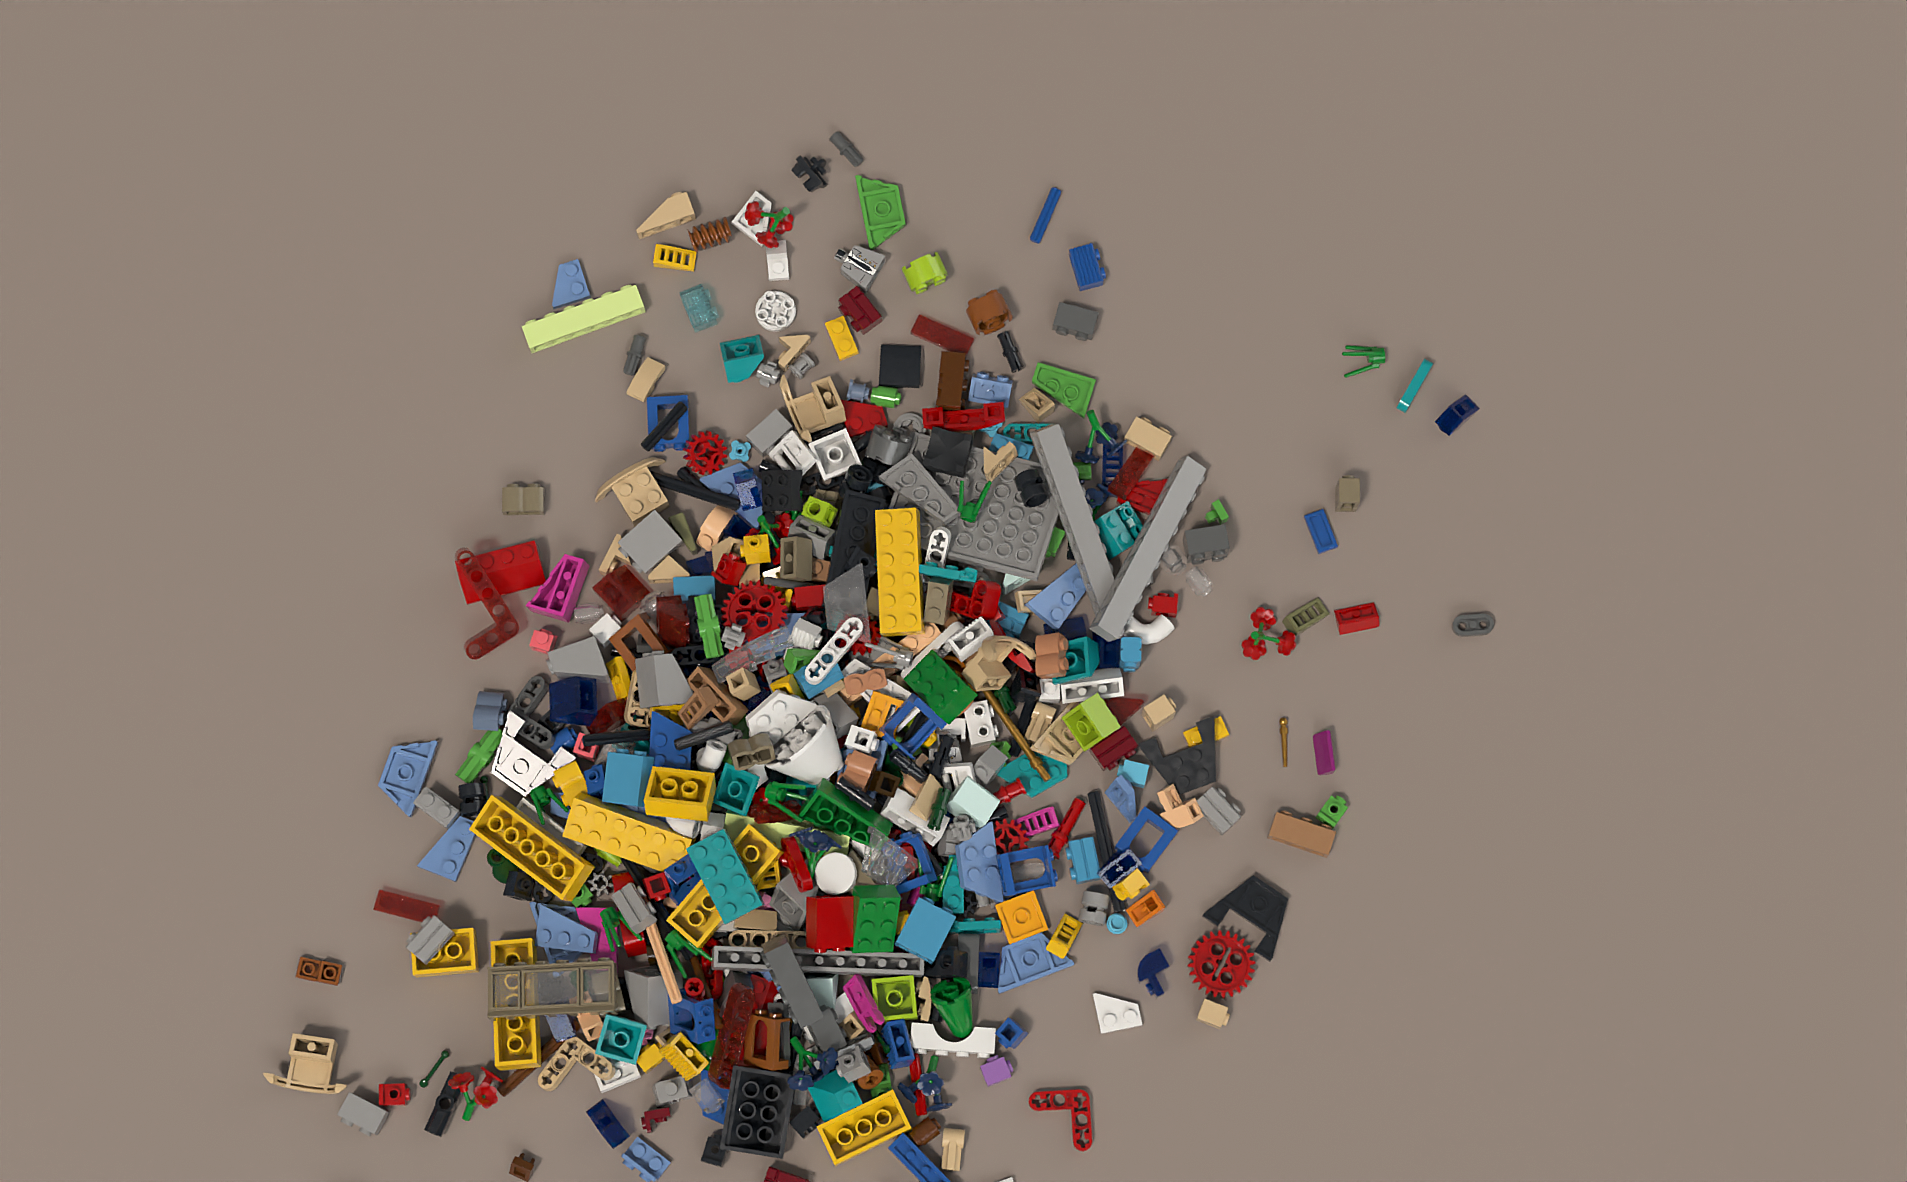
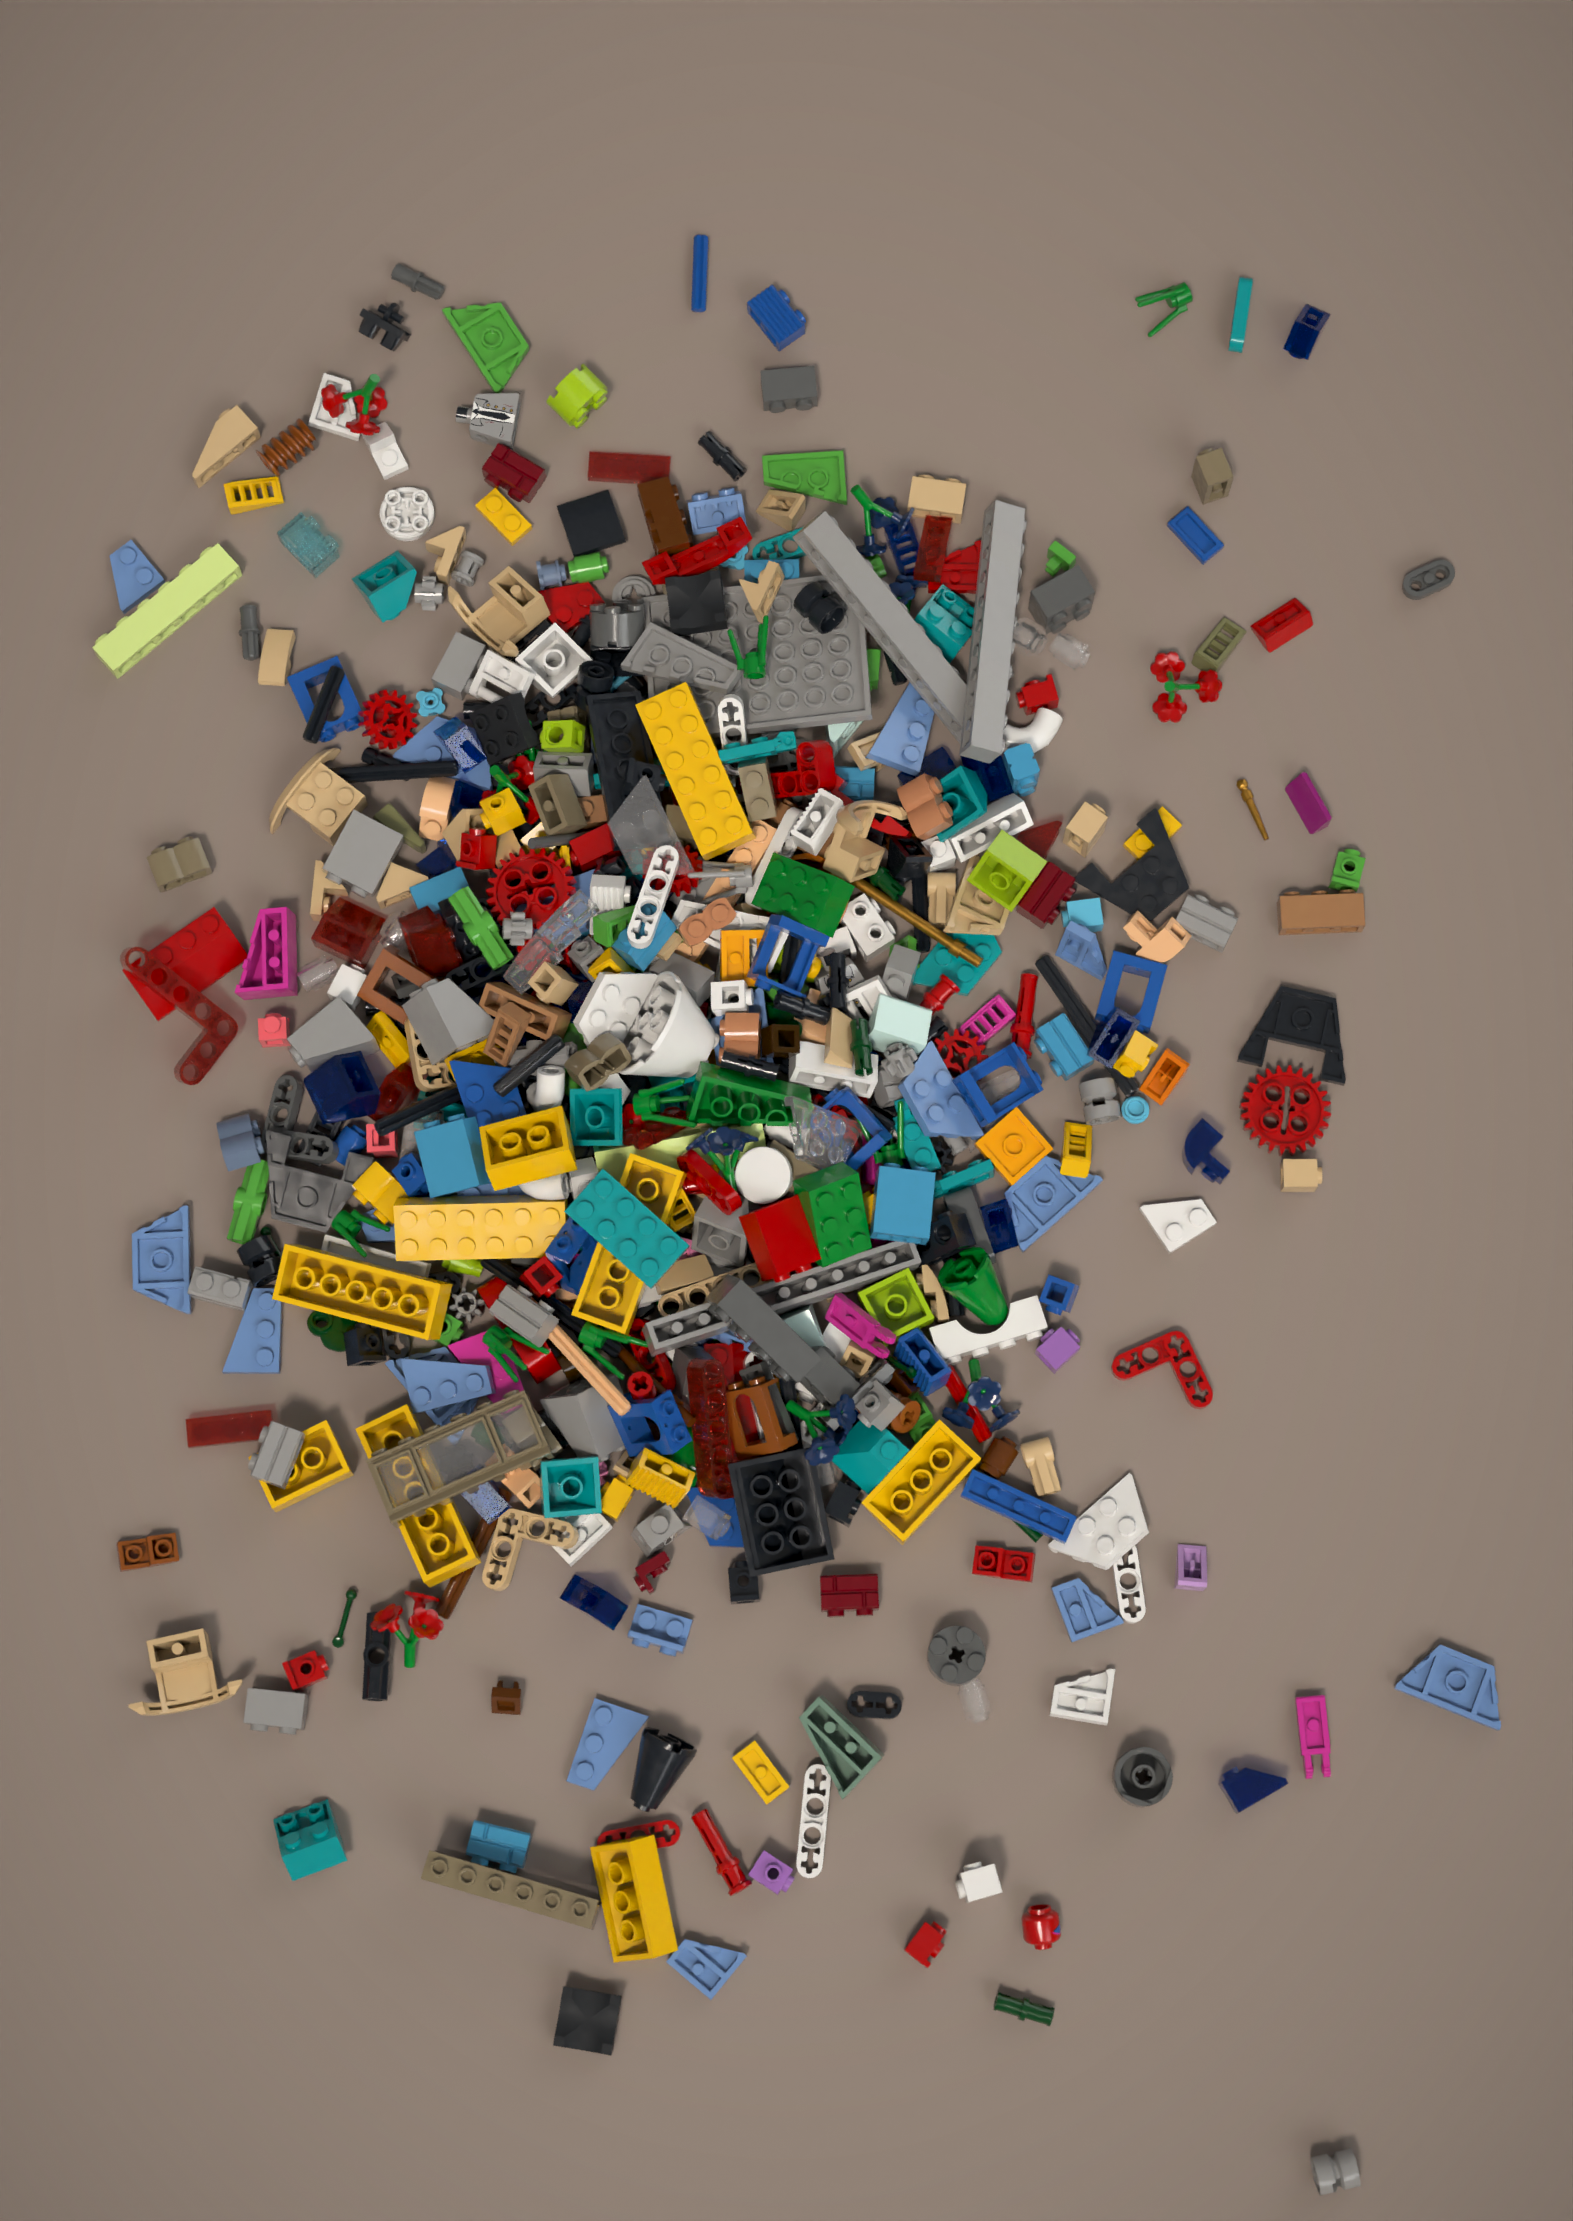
camera: 20 degrees left, 0 degrees up
(988, 312) = (677, 416): dark orange brick -> none

